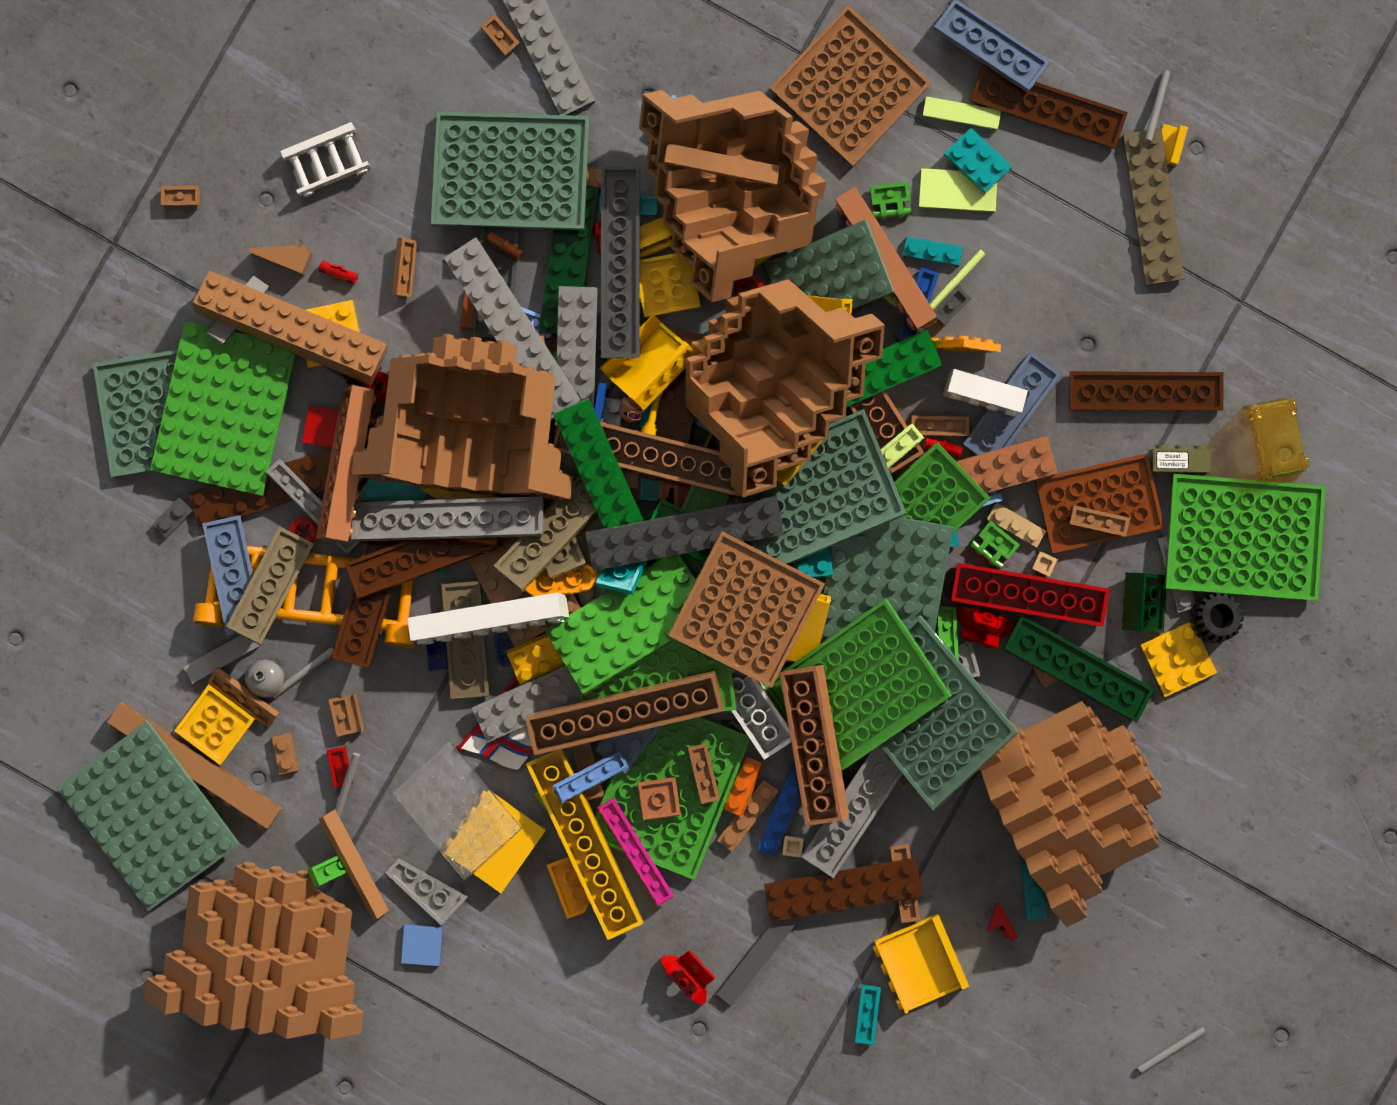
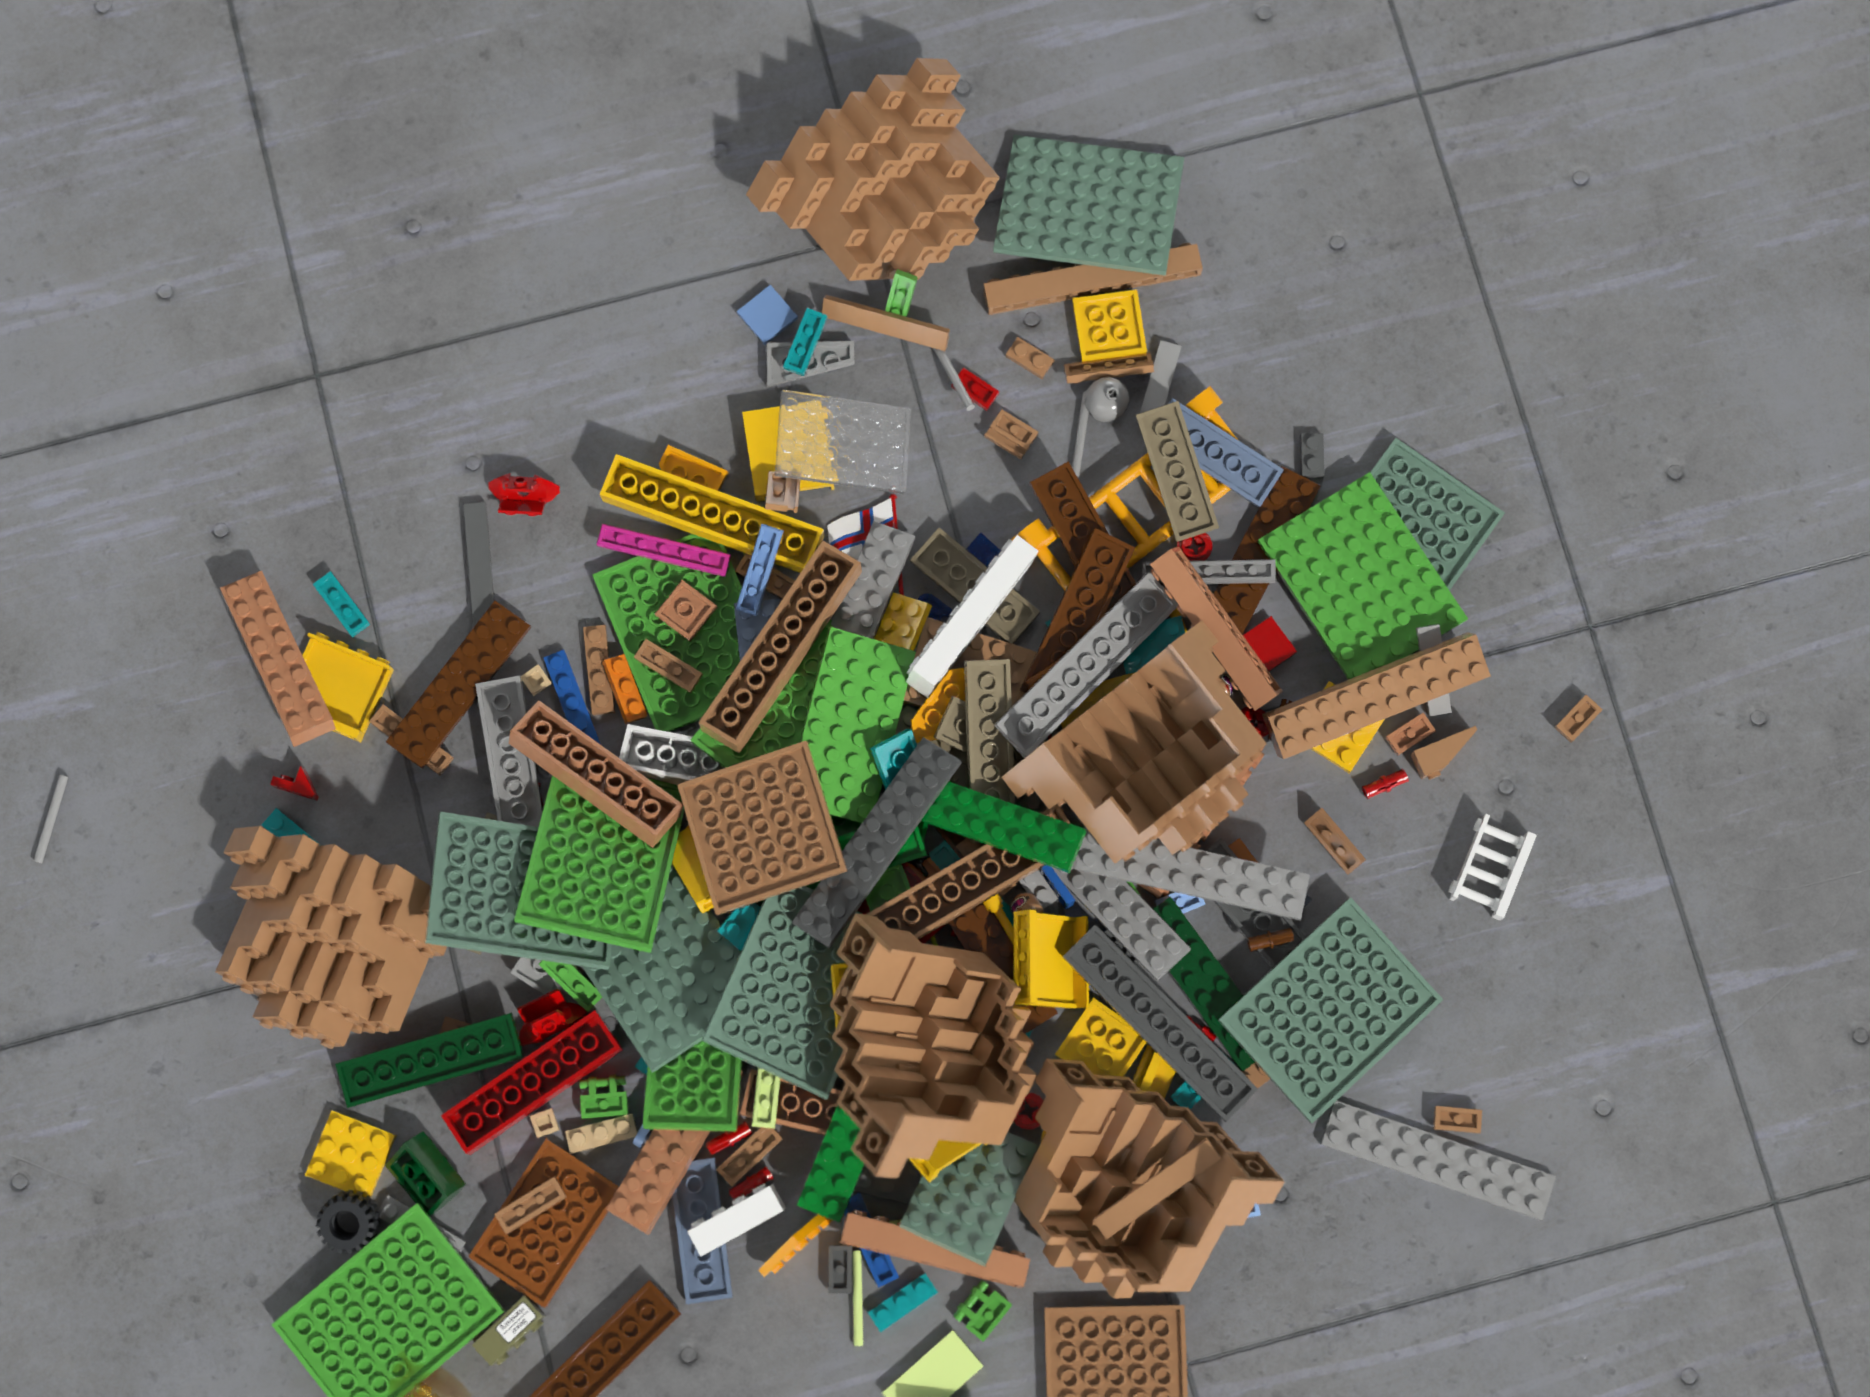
camera: 135 degrees right, 10 degrees down
(292, 286) = (1410, 734): none -> nougat plate
(416, 900) = (805, 342): none -> teal plate
(528, 812) = (782, 493): none -> medium nougat plate
(940, 1014) = (277, 658): none -> nougat brick
(956, 407) = (751, 1183): none -> red axle

